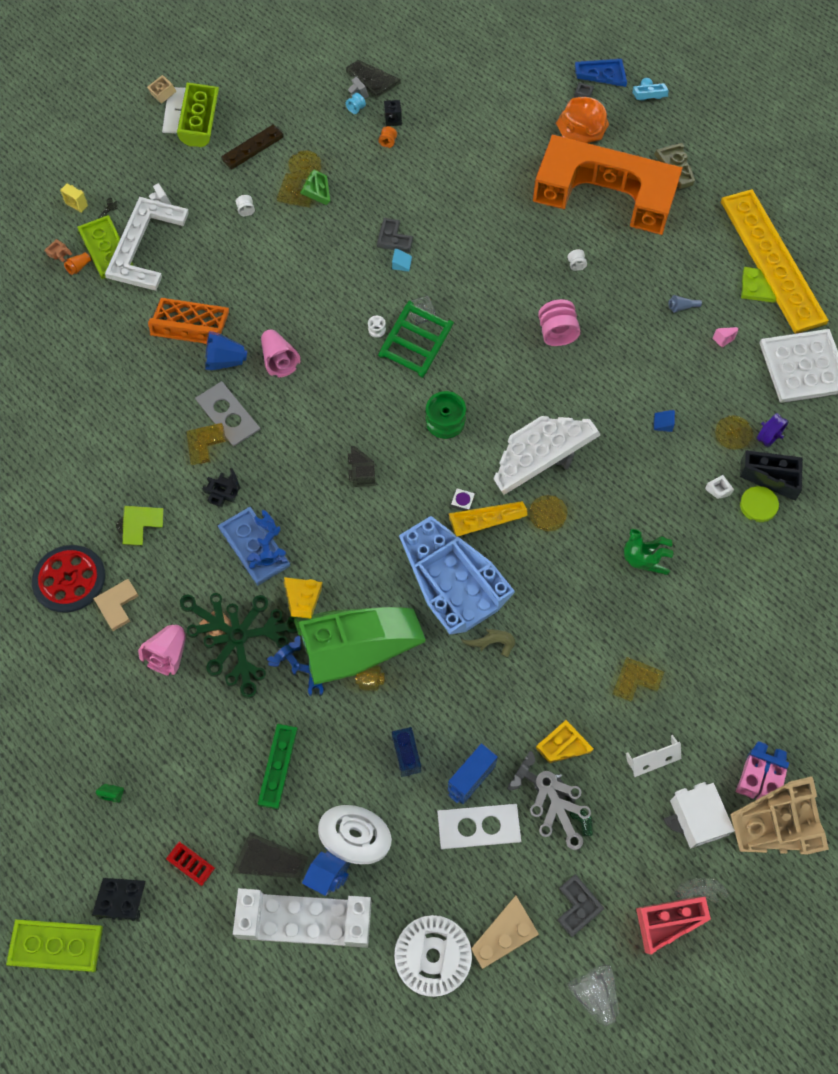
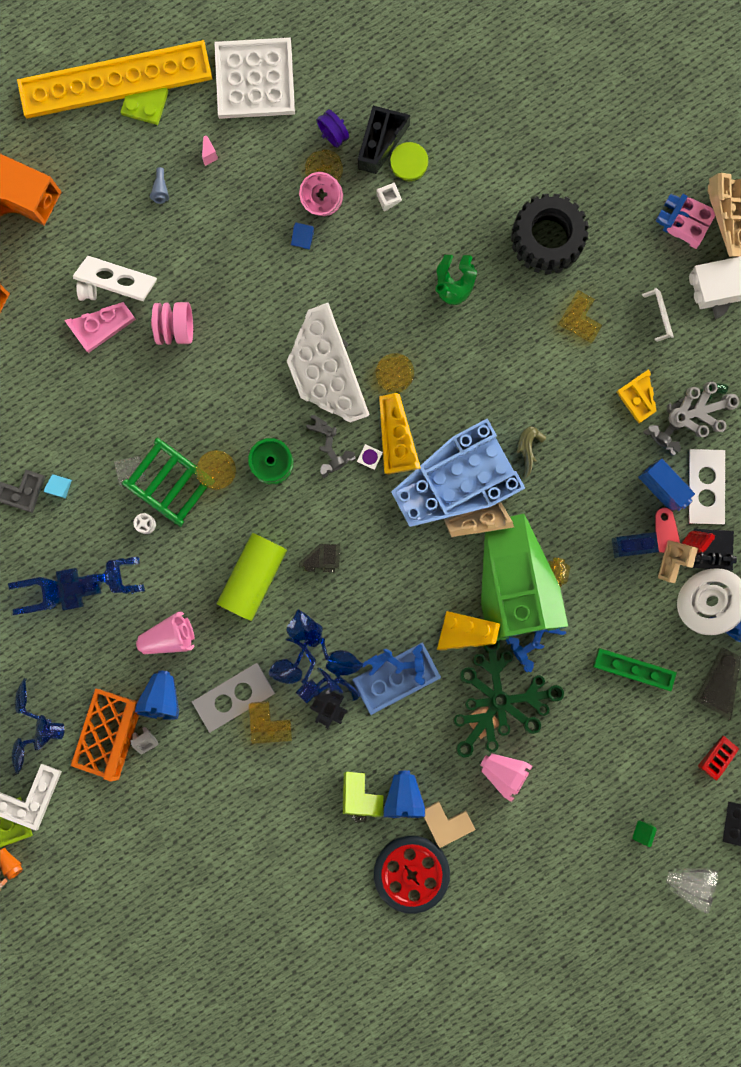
camera: 80 degrees left, 20 degrees up
(55, 846) = (694, 886): none -> clear cone
(140, 559) = (404, 798): none -> blue cone
(184, 347) = (143, 742): none -> light grey tile
(189, 276) = (44, 729): none -> clear blue plant
(239, 461) = (311, 689): none -> clear blue plant
(287, 467) = (305, 628): none -> clear blue plant
(315, 280) = (71, 588): none -> clear blue piece
(337, 414) = (251, 576): none -> lime brick
(394, 791) = (674, 556): none -> tan tile
(412, 838) = (719, 552): none -> black hinge
(413, 599) = (479, 521): none -> tan wing
(415, 812) = (699, 540): none -> red slope
(423, 787) = (665, 529): none -> coral piece
(432, 374) = (216, 470): none -> clear yellow tile
(453, 470) = (337, 462): none -> dark grey piece
(548, 275) = (101, 325): none -> bright pink wing
(583, 295) = (91, 266): none -> white piece
(705, 425) = (312, 187): none -> bright pink wheel
(729, 615) = (556, 210): none -> black tyre

